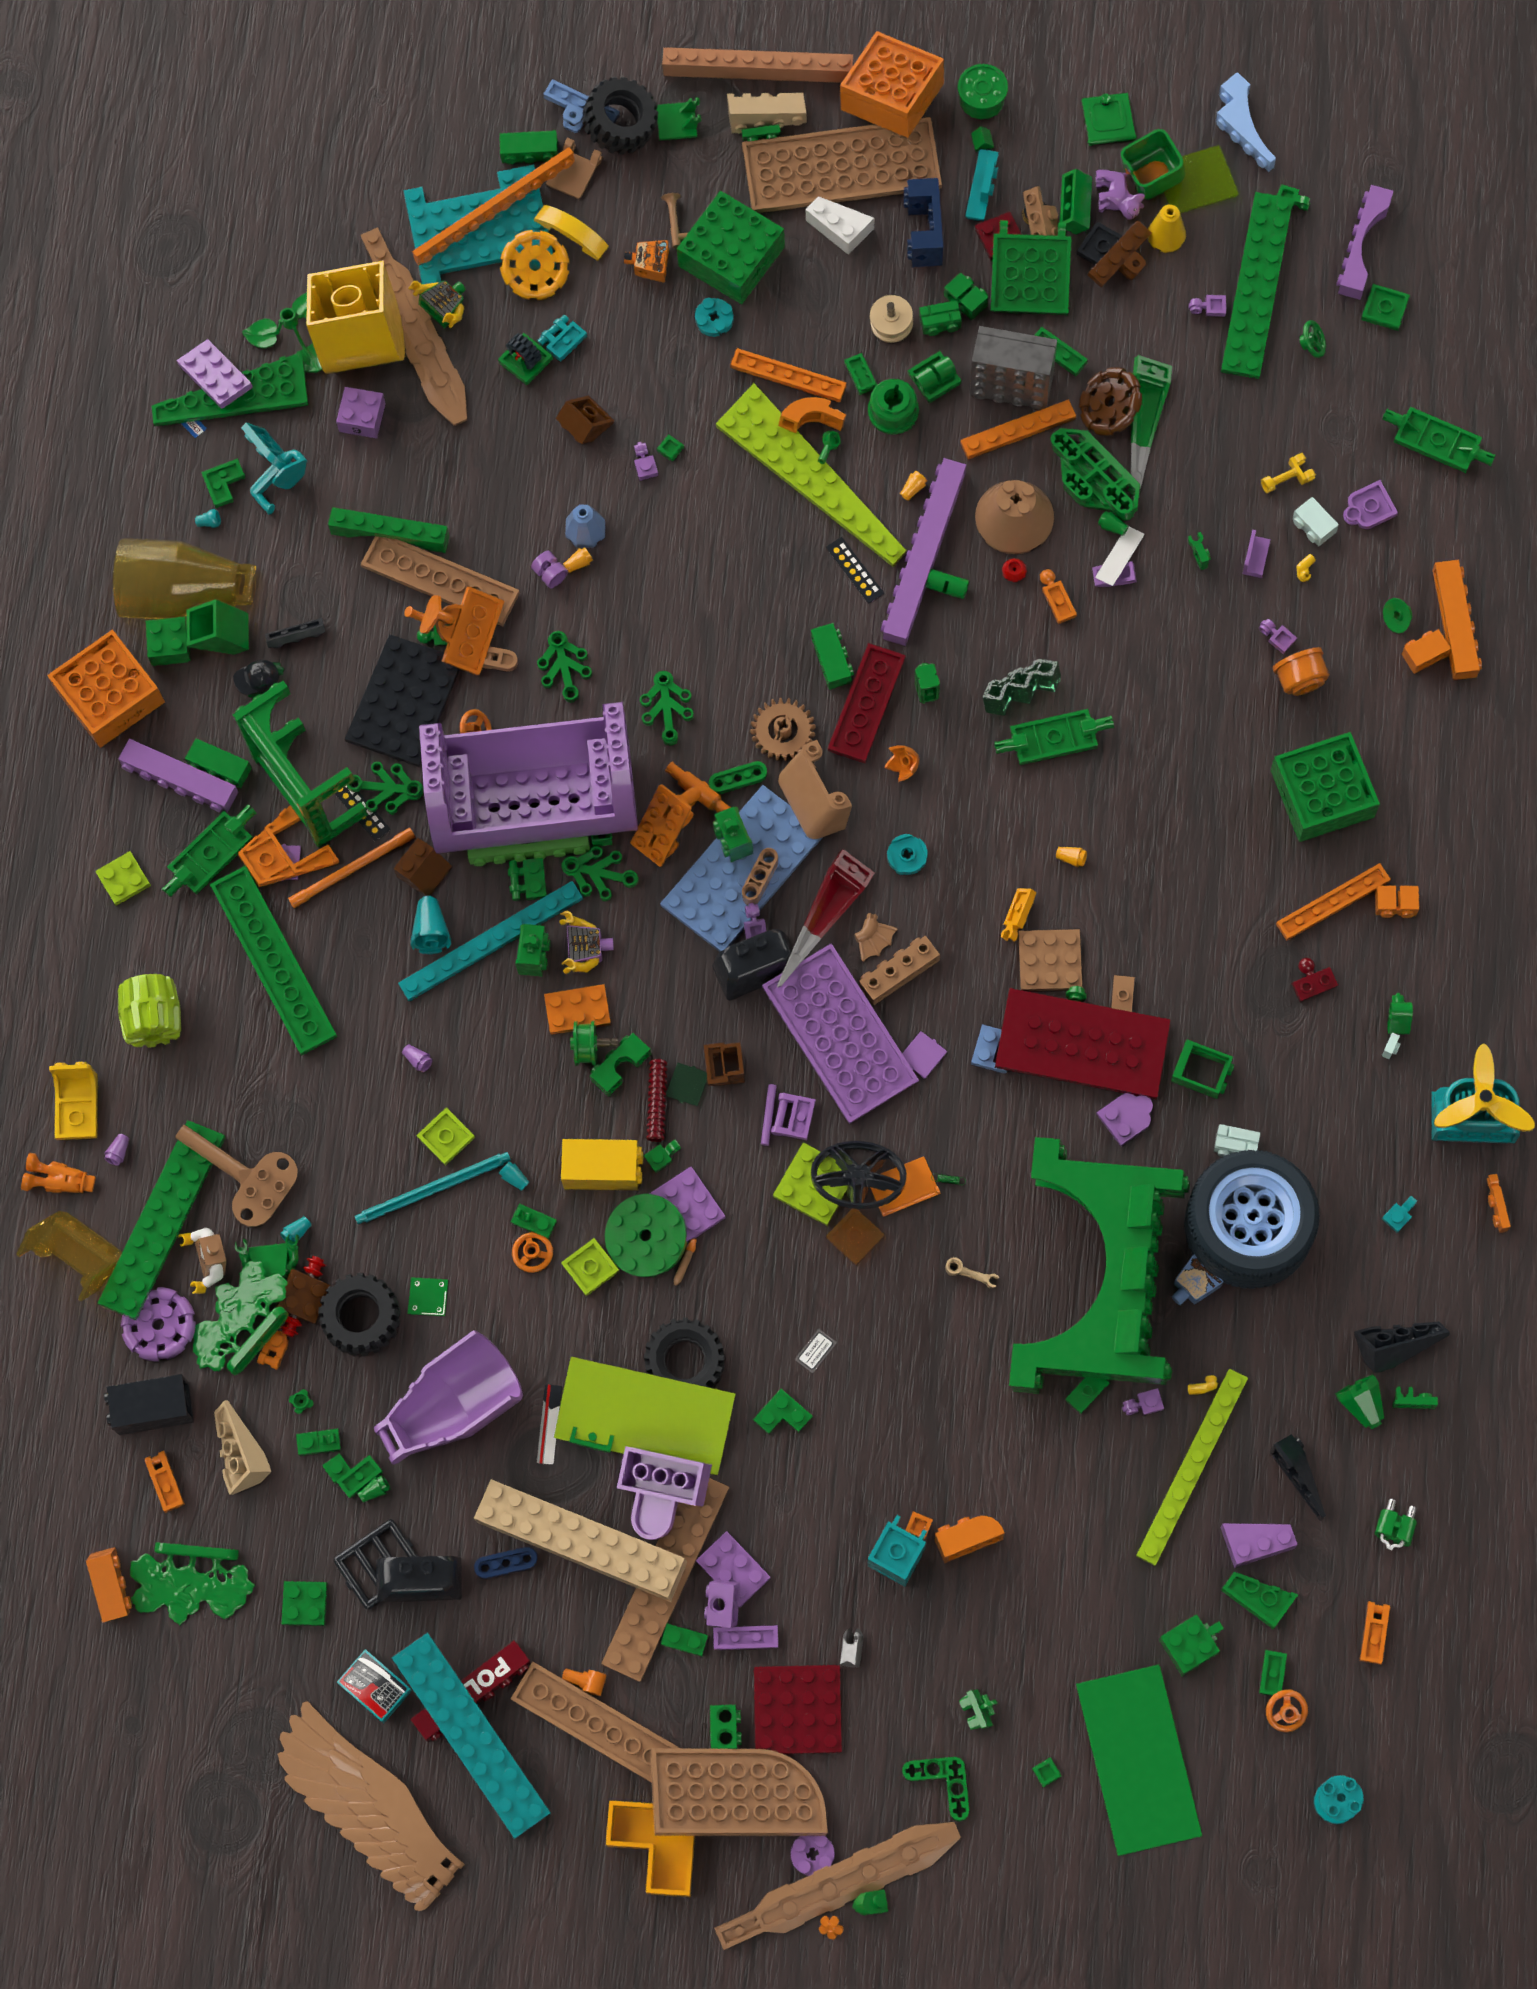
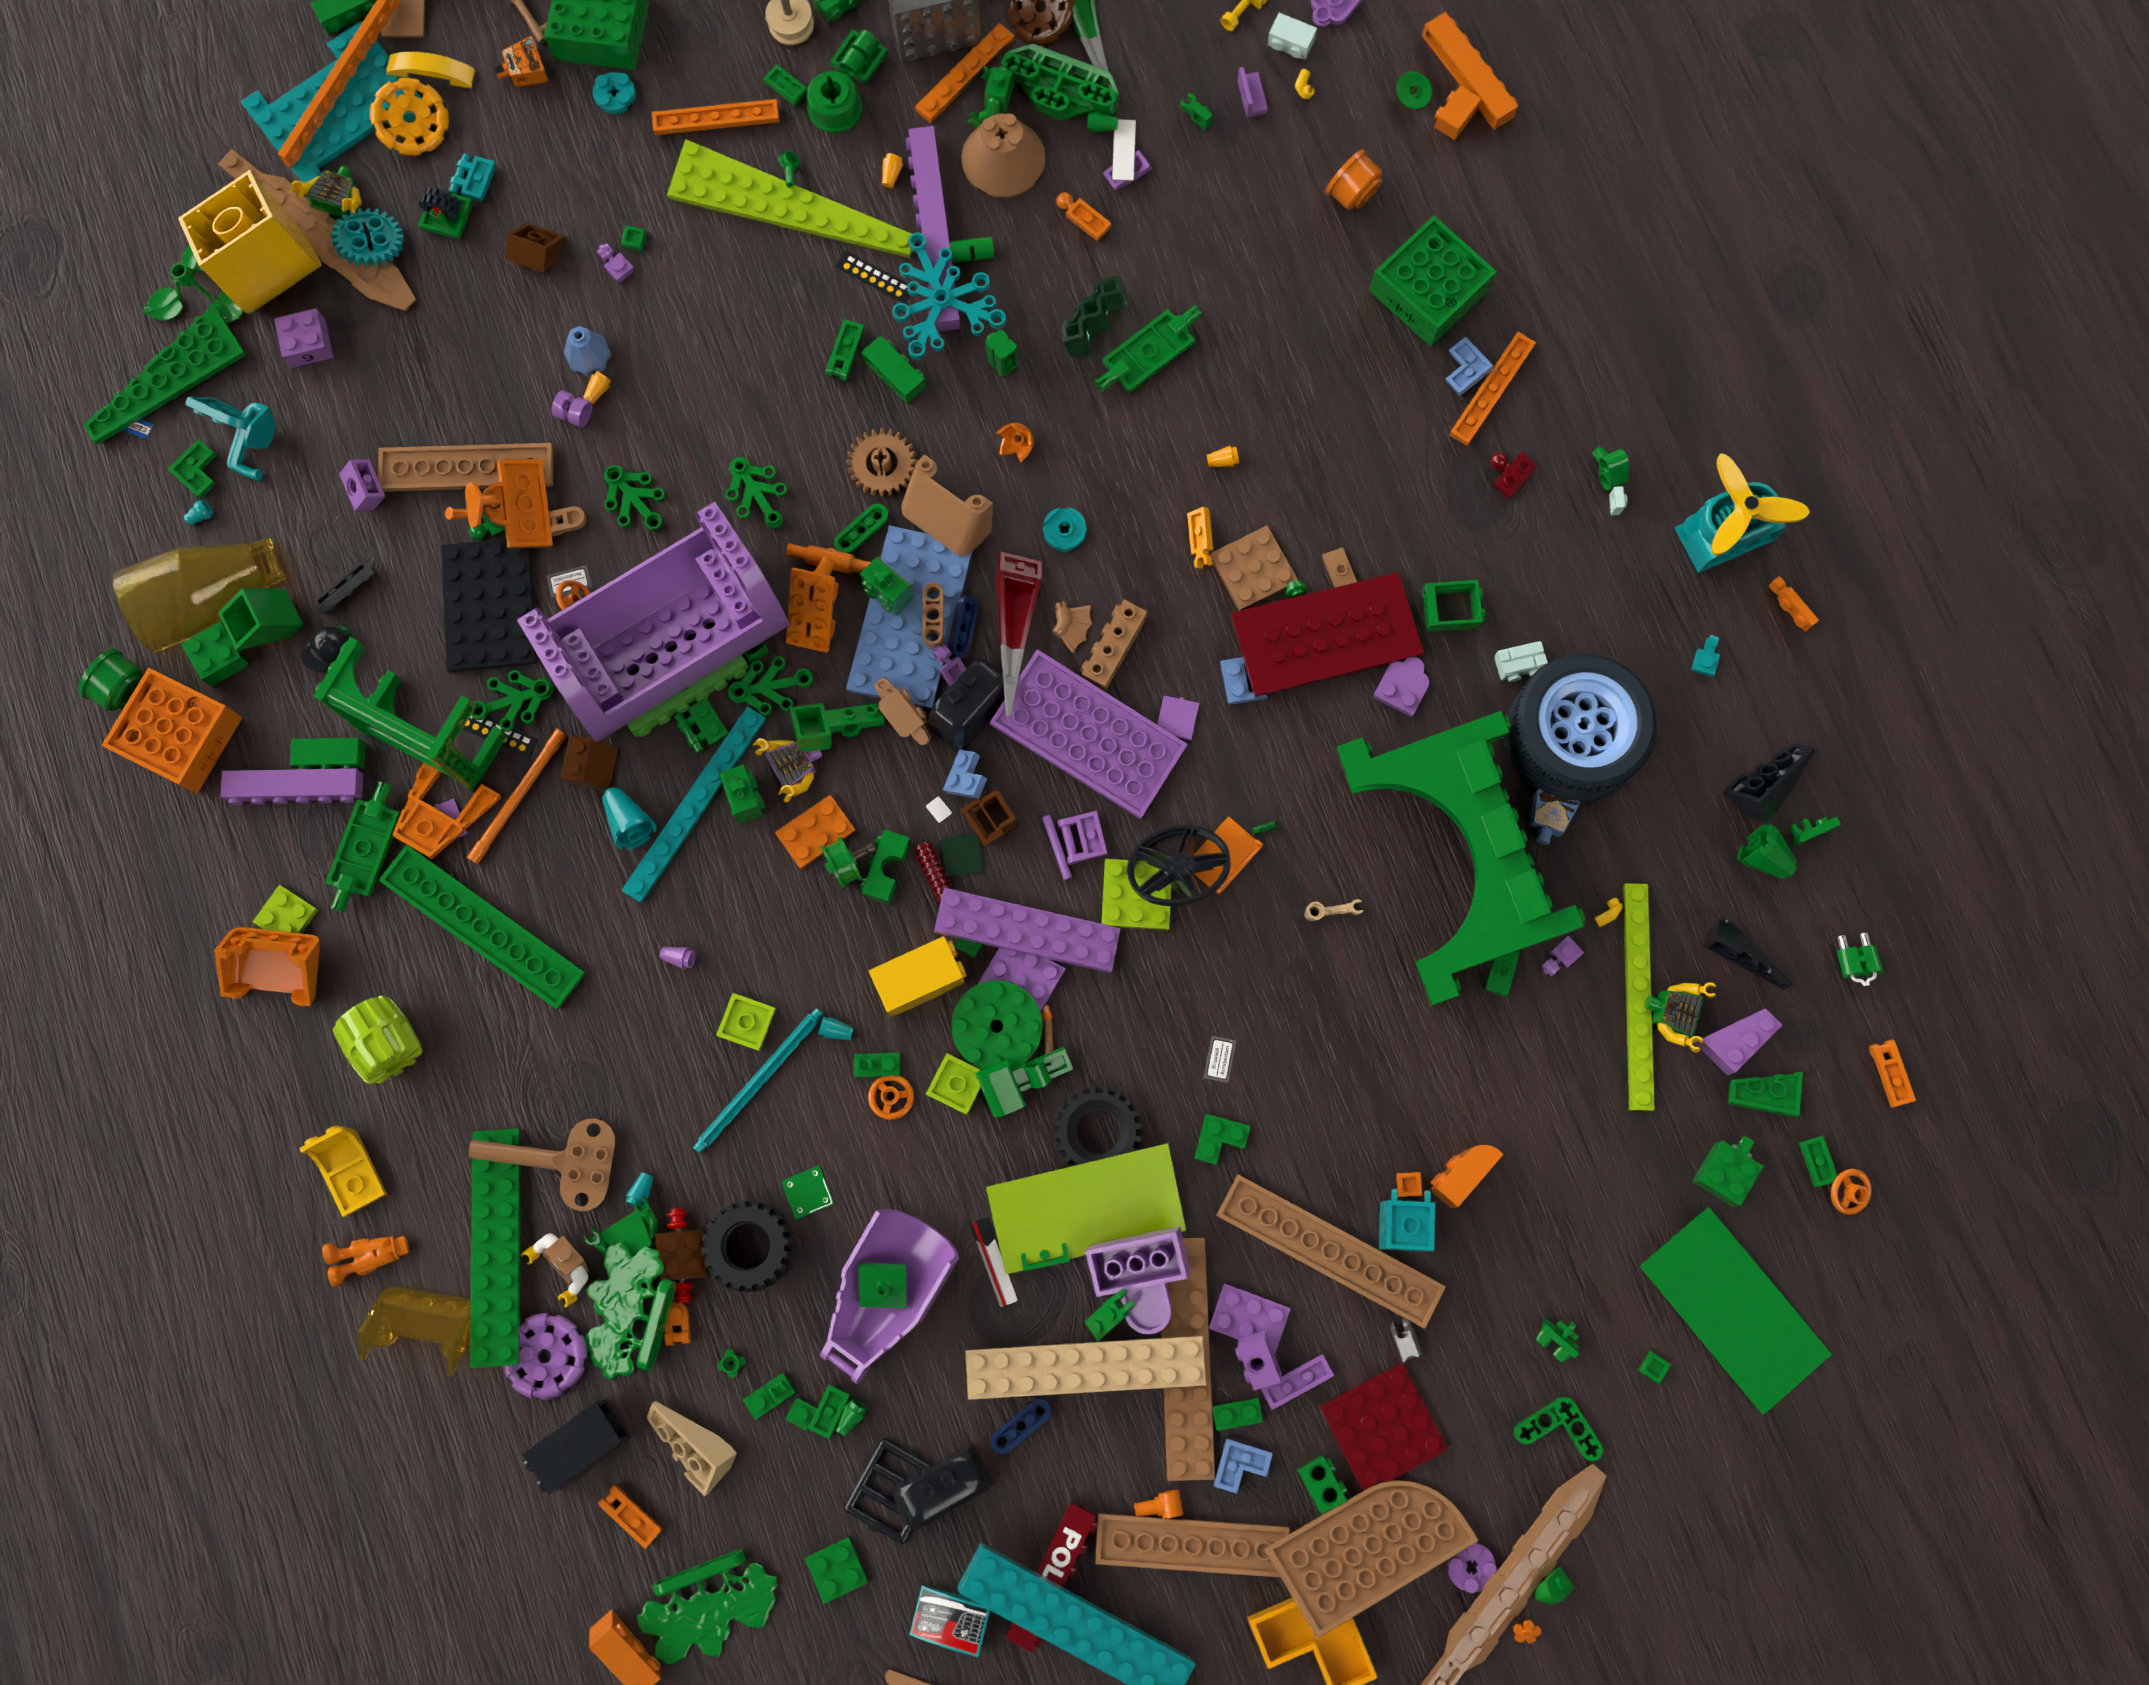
camera: 30 degrees left, 5 degrees up
(77, 626) = (110, 680): none -> green wheel
(93, 910) = (268, 962): none -> orange windscreen
(116, 1151) = (414, 1197): medium lavender cone -> none
(214, 374) = (133, 364): plate -> none
(349, 556) = (362, 485): none -> medium lavender brick
(421, 534) = (424, 431): green arch -> none
(434, 348) = (351, 241): none -> teal gear
(450, 1396) = (883, 1285): none -> green plate
(488, 708) = (578, 574): none -> sticker
(619, 920) = (814, 724): none -> green plate
(620, 1508) = (1109, 1315): none -> green hinge
(627, 1286) = (1004, 1085): none -> green plate
(666, 1674) = (1237, 1458): none -> medium blue plate
(687, 1038) = (938, 809): none -> white sticker
(695, 943) = (901, 711): none -> medium nougat hinge
(709, 1170) = (1027, 930): none -> medium lavender plate
(717, 1021) = (961, 777): none -> medium blue plate
(787, 894) = (964, 618): none -> dark blue plate
(799, 621) = (845, 349): none -> green plate
(811, 410) = (756, 140): orange arch -> none
(826, 1548) = (1331, 1251): none -> medium nougat plate
(855, 1236) = (1201, 927): clear orange tile -> none
(866, 703) = (951, 401): dark red plate -> none
(900, 592) = (932, 277): none -> teal plant
(1014, 576) = (1029, 214): red plate -> none
(1033, 461) = (997, 93): none -> green torso
(1217, 1493) = (1678, 1012): none -> torso
(1281, 639) = (1316, 160): medium lavender plate -> none
(1325, 875) = (1472, 369): none -> medium blue plate
(1338, 1799) = (1950, 1256): teal piece -> none
(1407, 901) = (1546, 363): orange piece -> none

